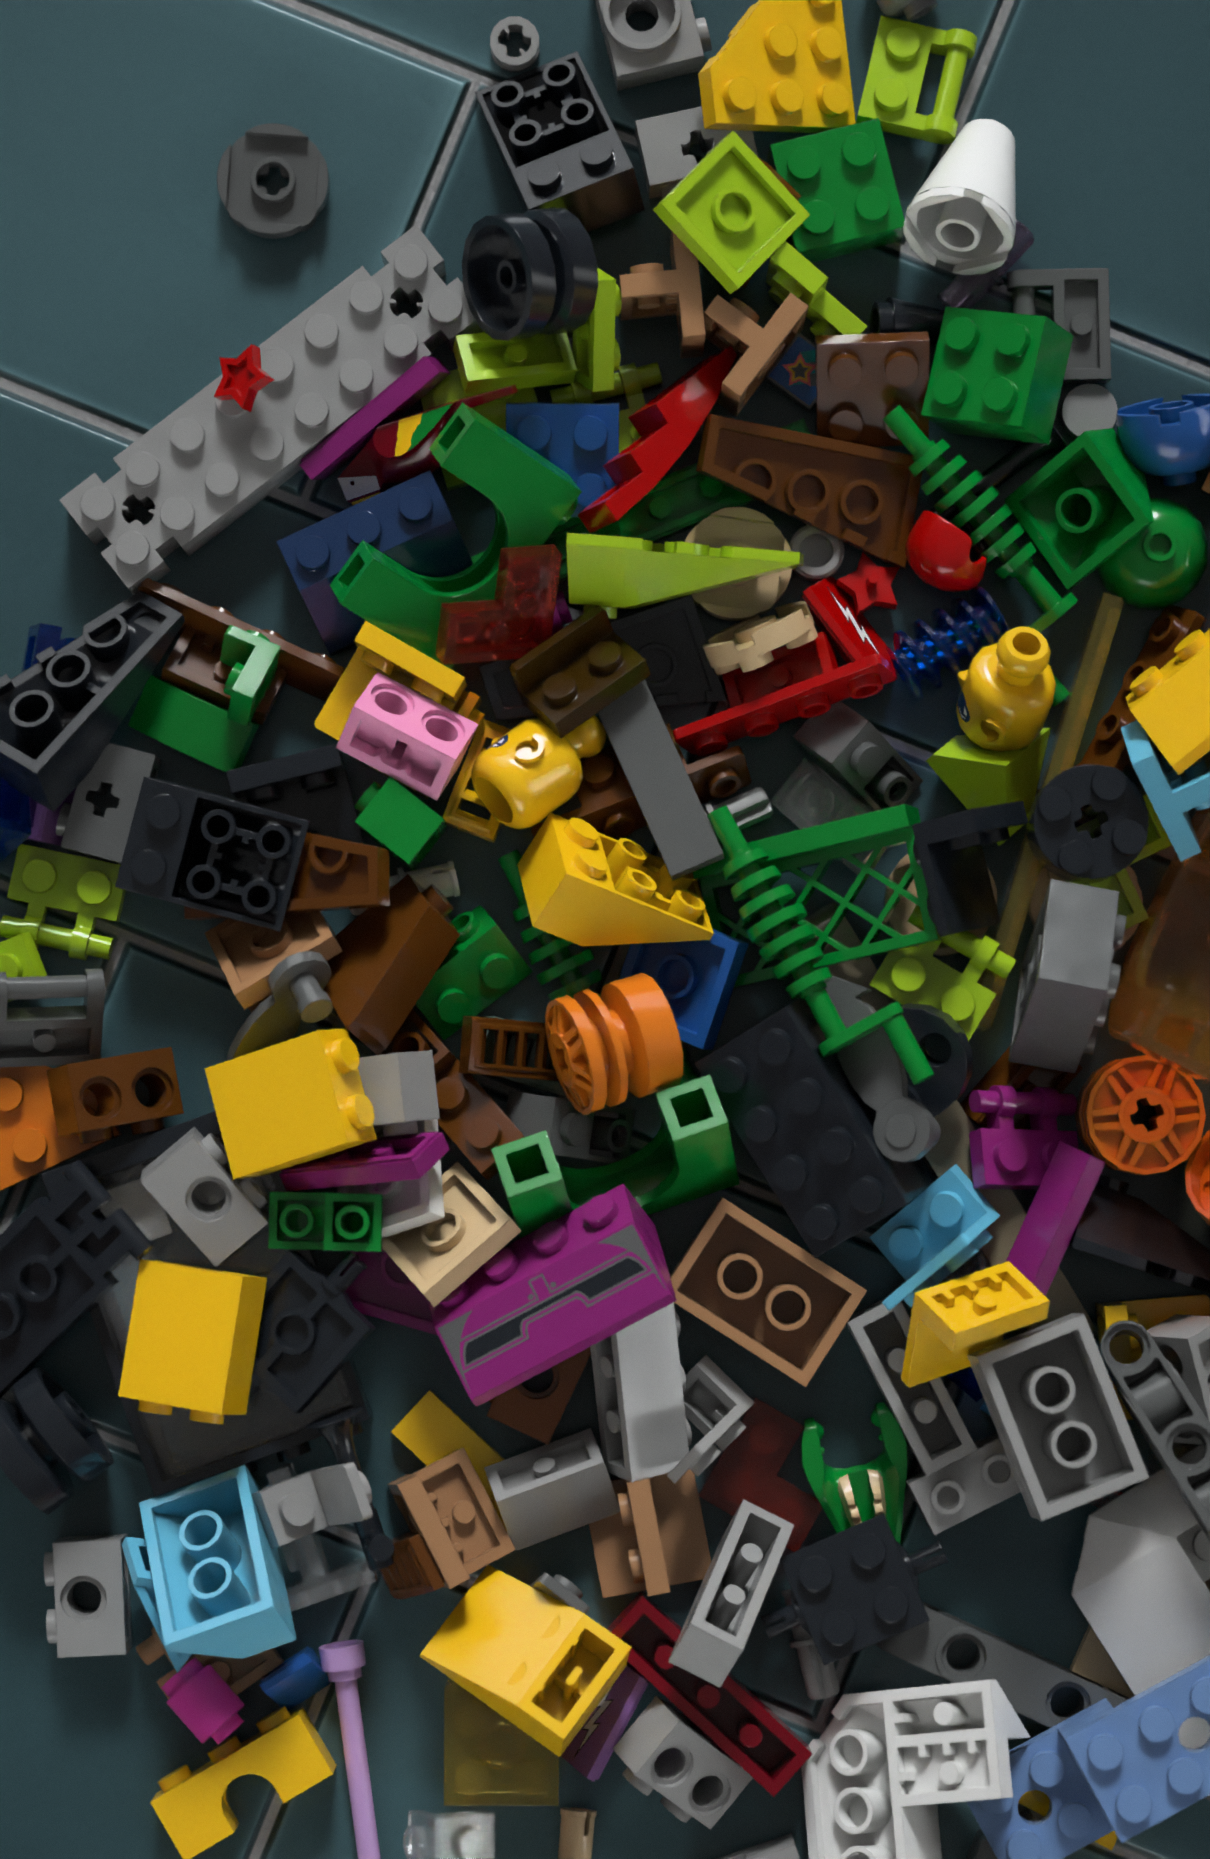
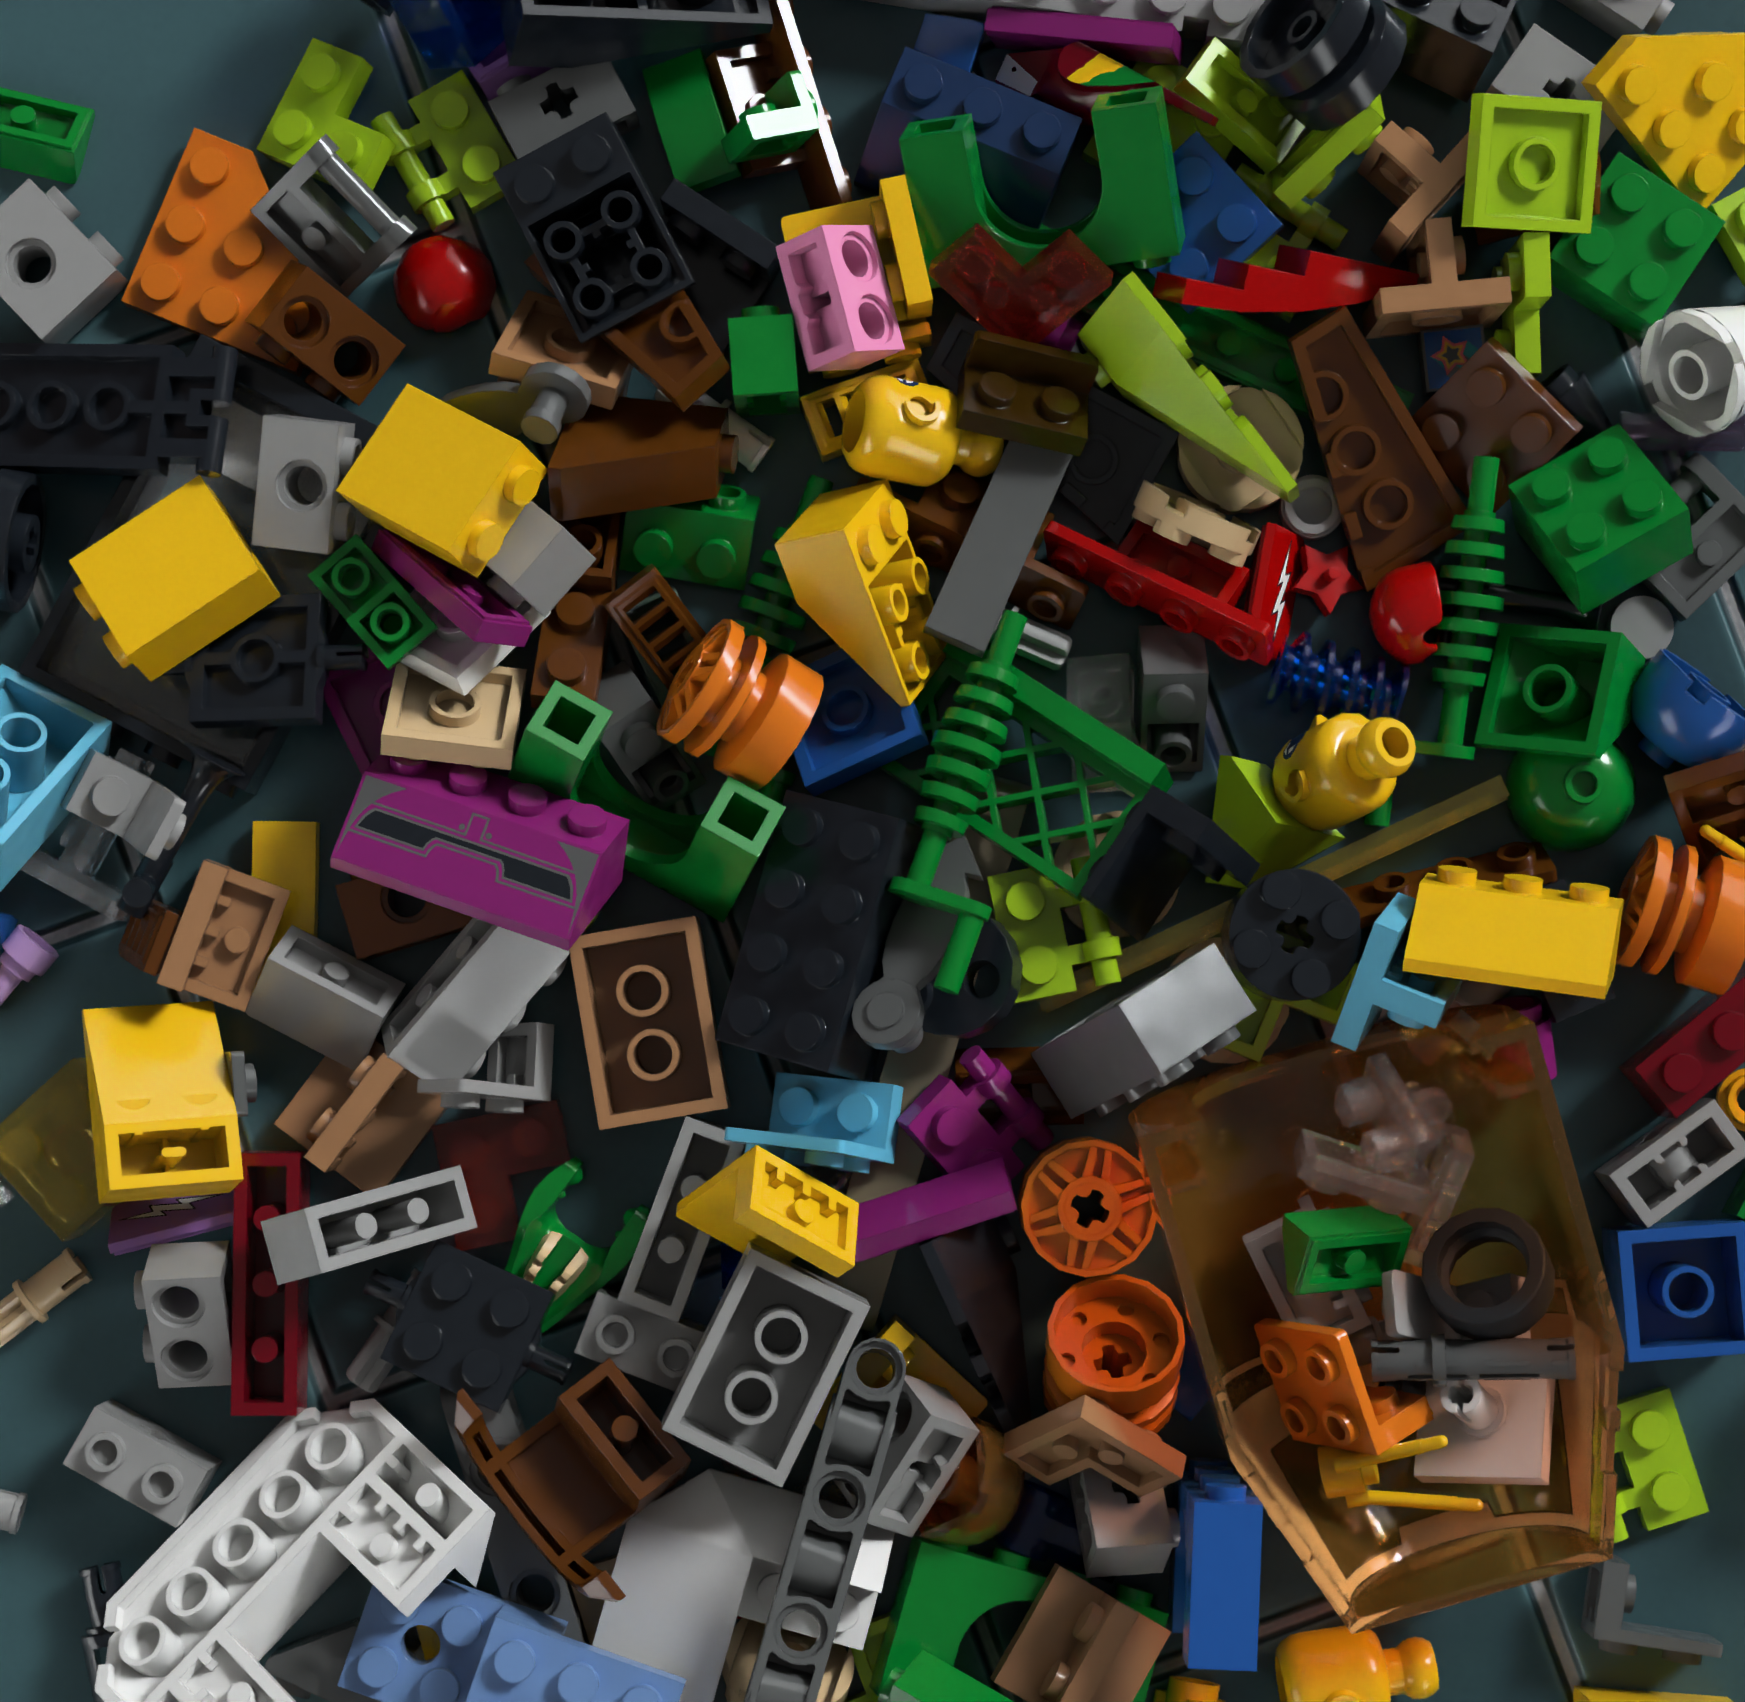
camera: 50 degrees right, 0 degrees up
(149, 984) = (443, 284): none -> red hair
(294, 508) = (951, 40): none -> blue slope
(1016, 1601) = (578, 1471): none -> reddish brown piece

